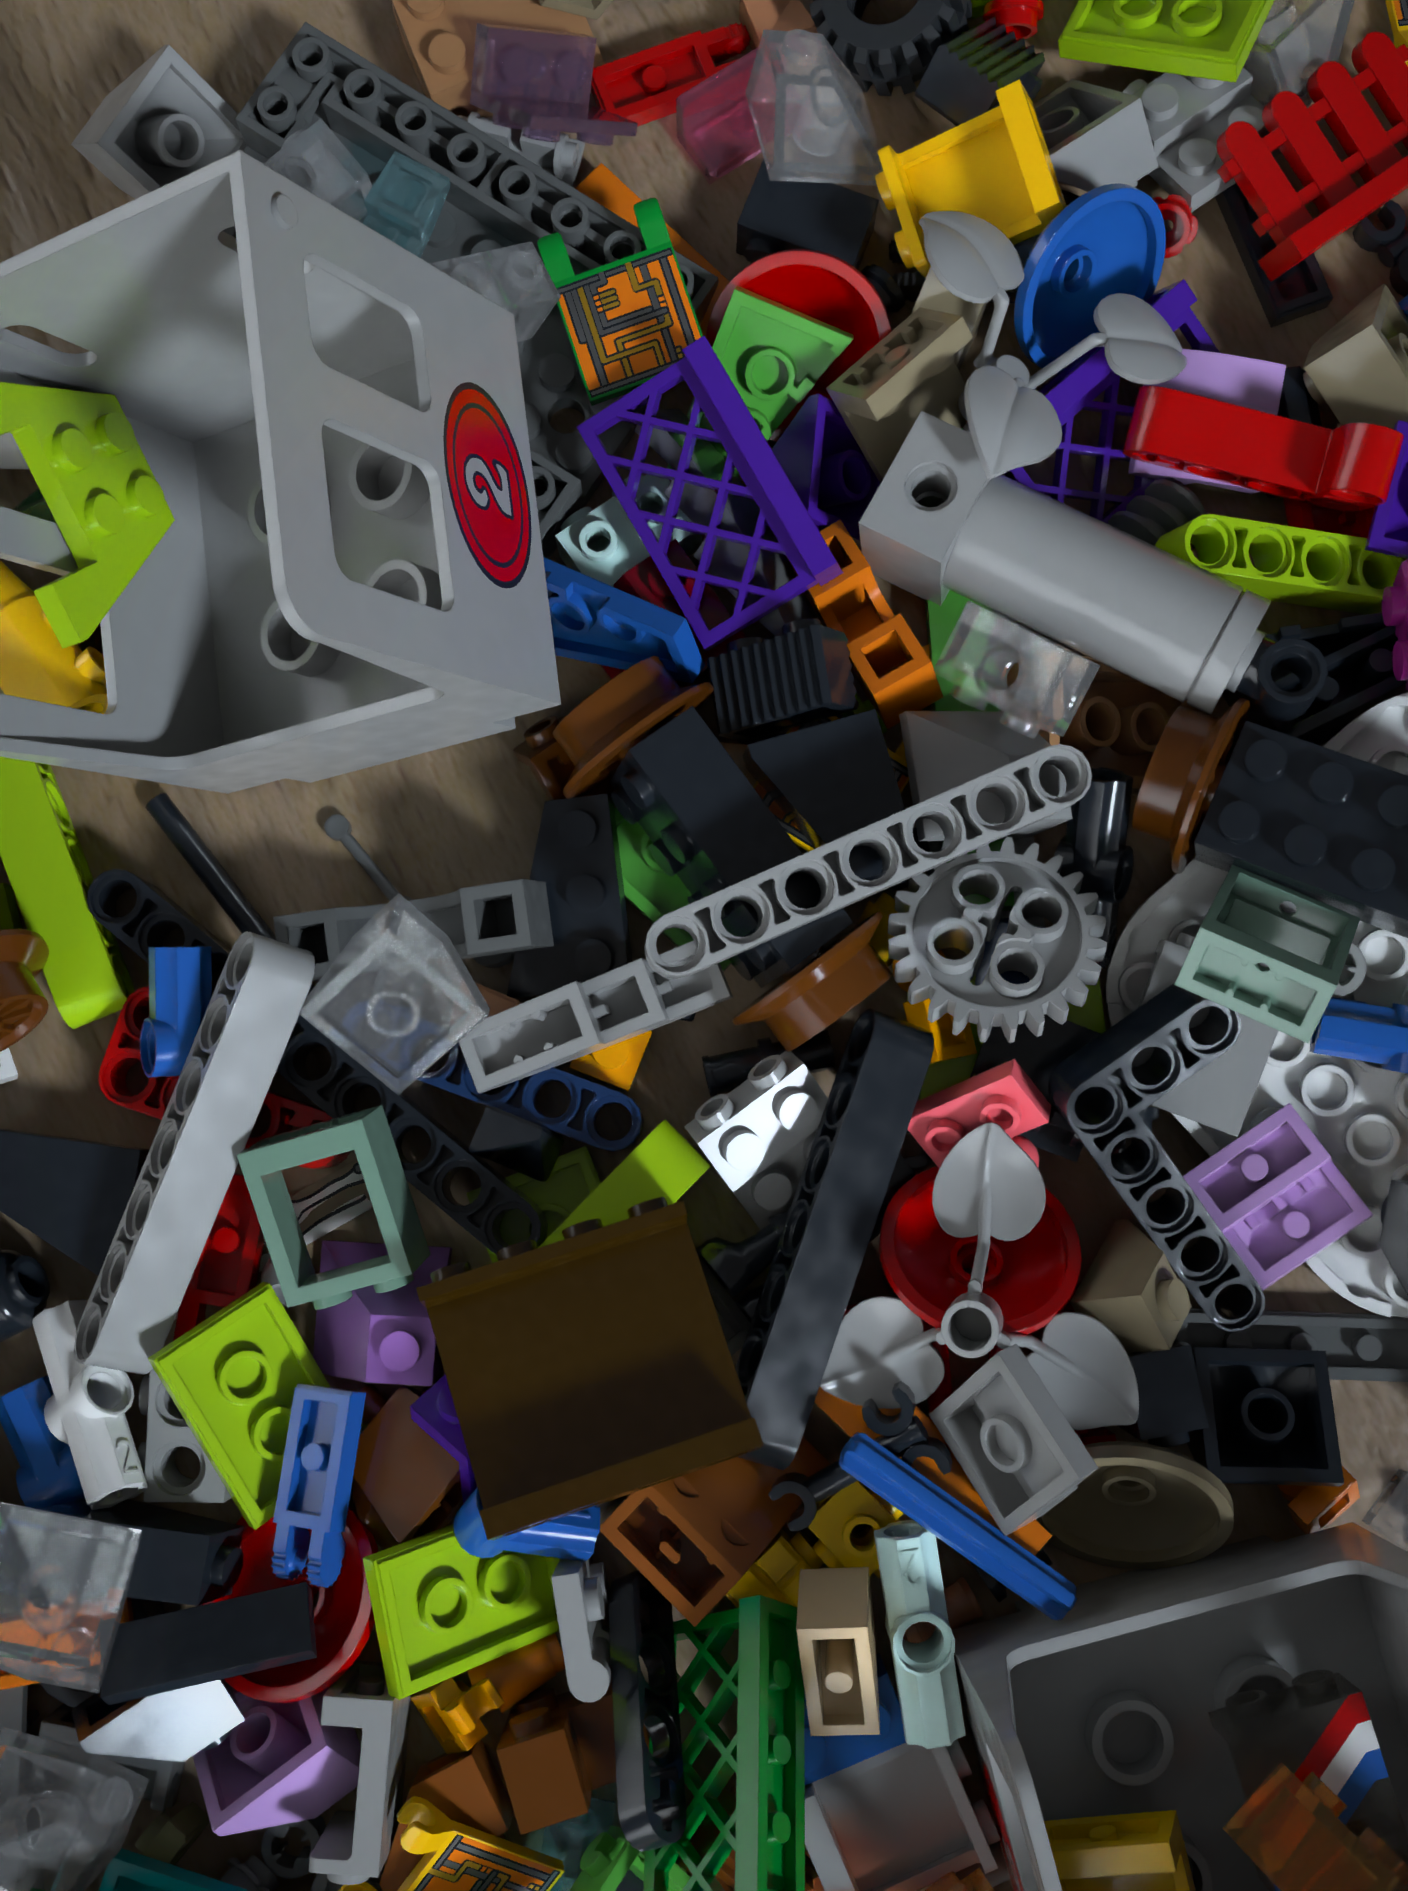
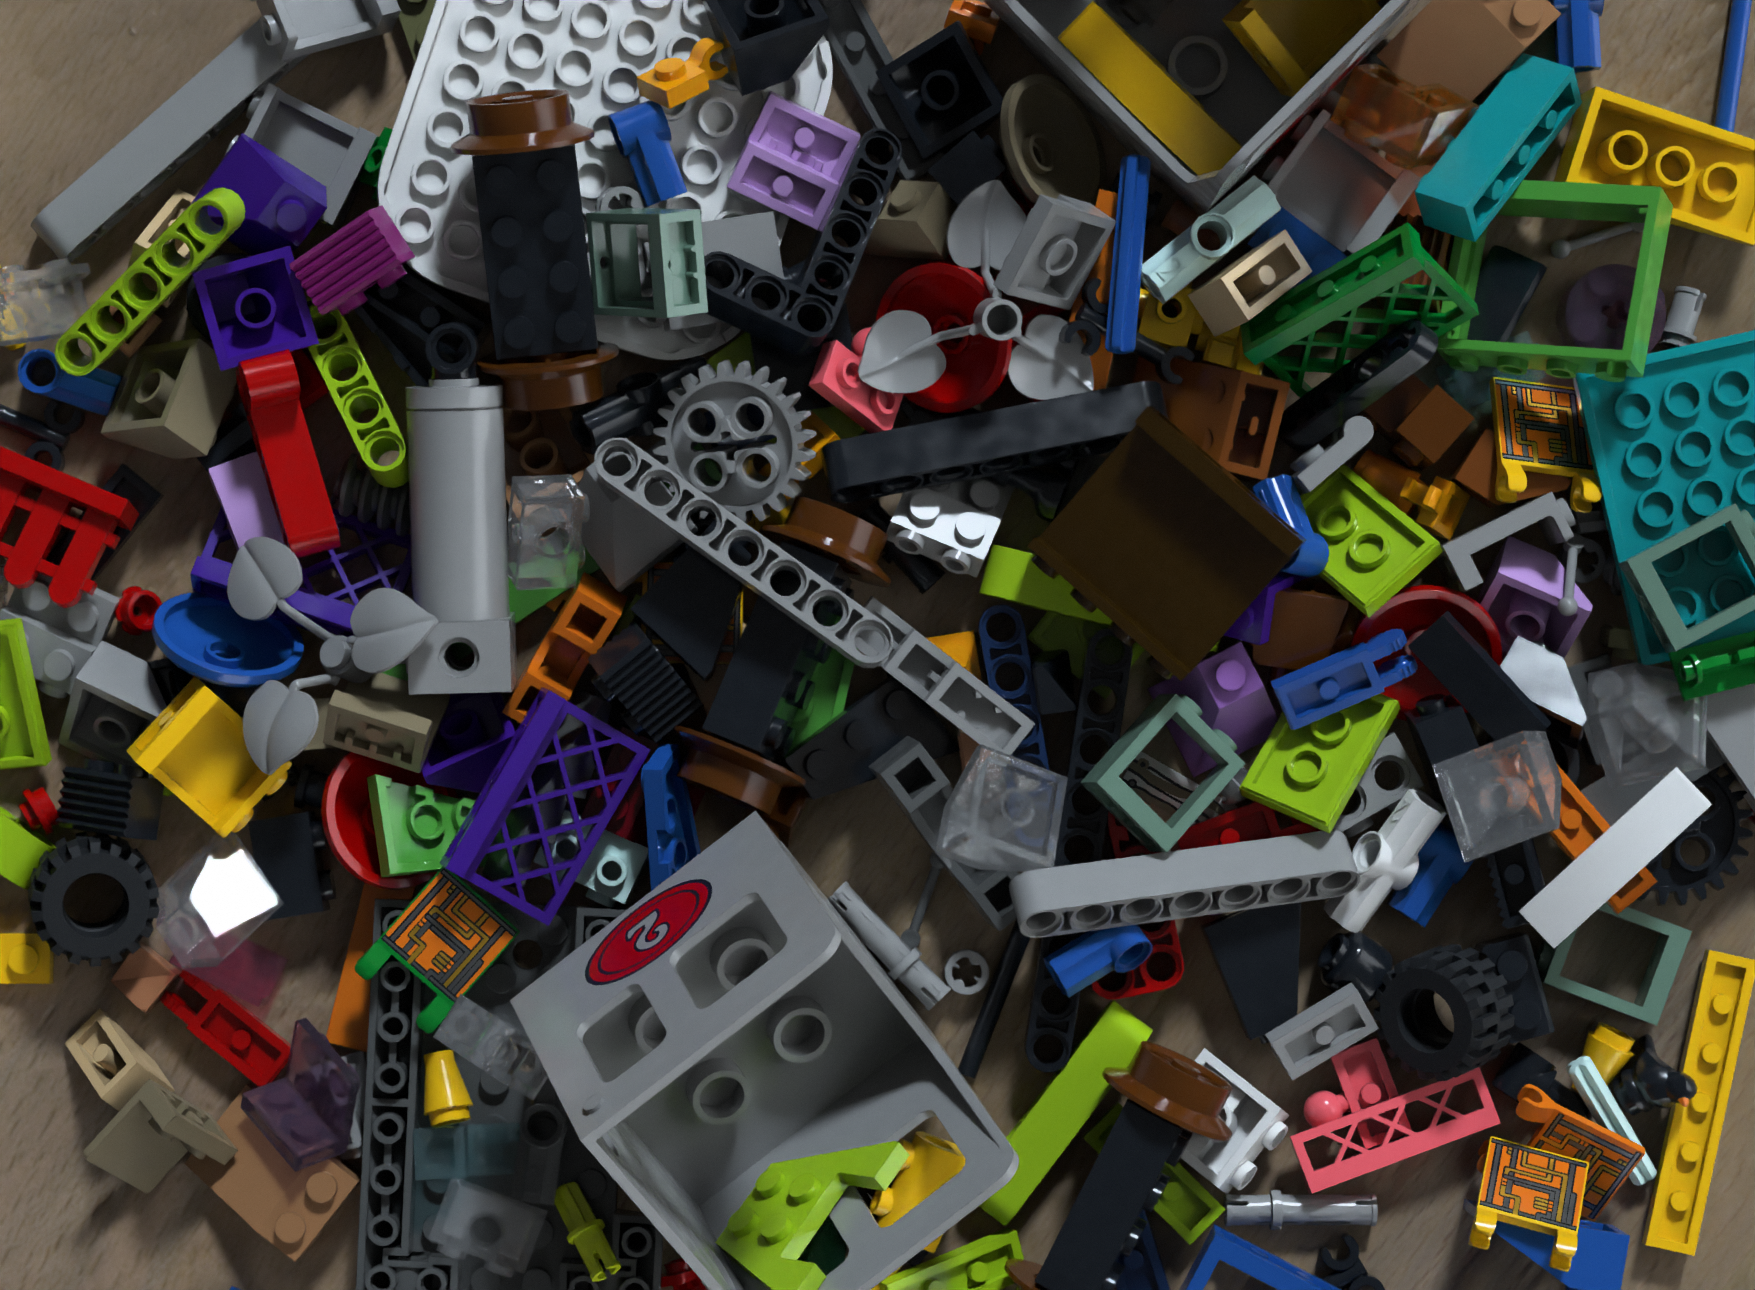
camera: 120 degrees left, 5 degrees up
(236, 1810) = (1567, 605): none -> light grey hinge
(258, 847) = (975, 959): none -> light grey bush
(331, 798) = (889, 947): none -> light grey pin
(462, 230) = (444, 1090): none -> yellow cone
(1146, 1667) = (1149, 91): none -> yellow slope

